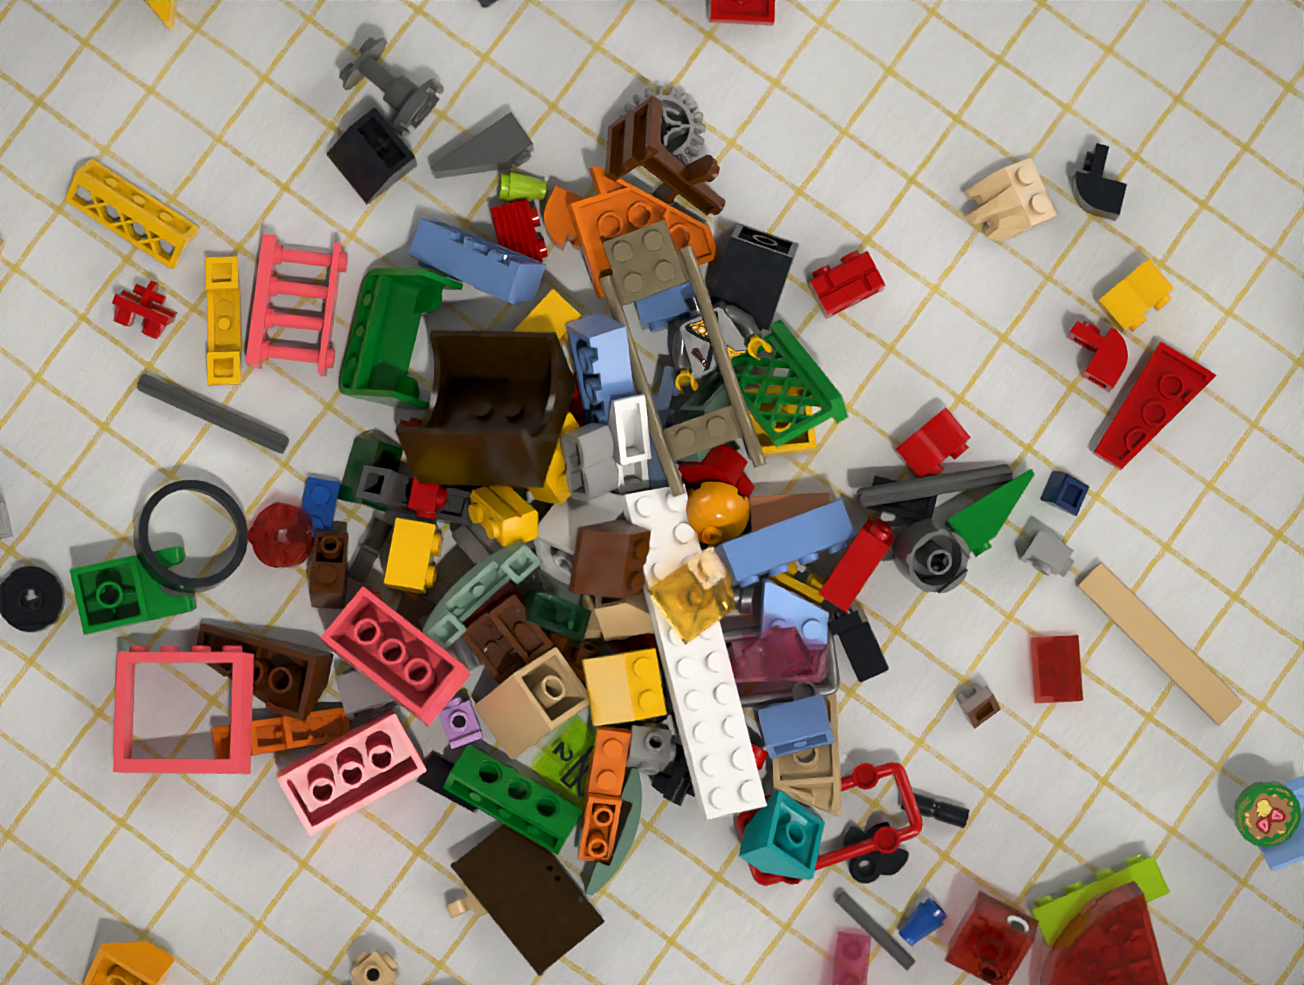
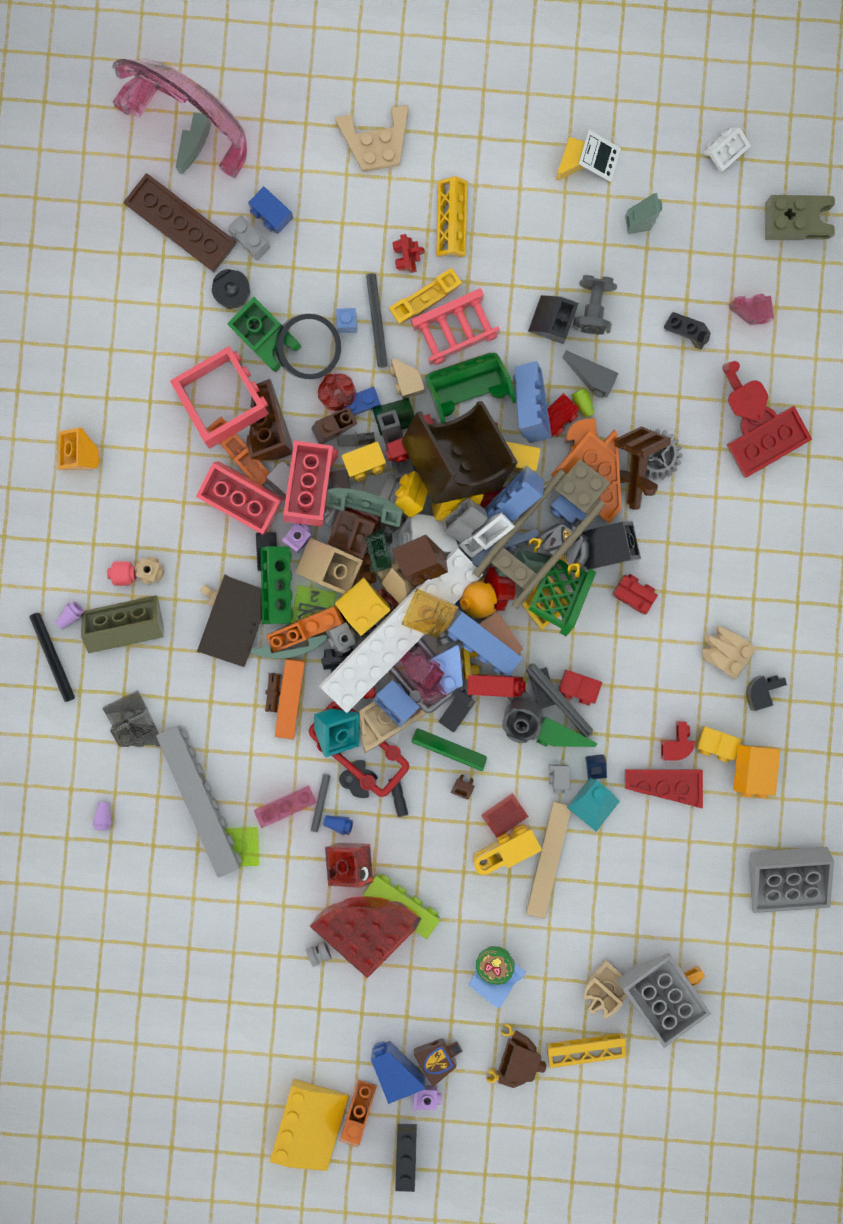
camera: 65 degrees right, 5 degrees up
(186, 457) = (346, 320): none -> medium blue brick
(327, 420) = (408, 379): none -> tan slope
(668, 901) = (272, 692): none -> reddish brown pin
(693, 881) = (289, 698): none -> orange slope
(909, 691) = (449, 749): none -> green slope
(1109, 693) = (507, 850): none -> yellow brick
(1116, 528) = (593, 803): none -> teal slope
(1208, 265) = (756, 771): none -> light orange brick

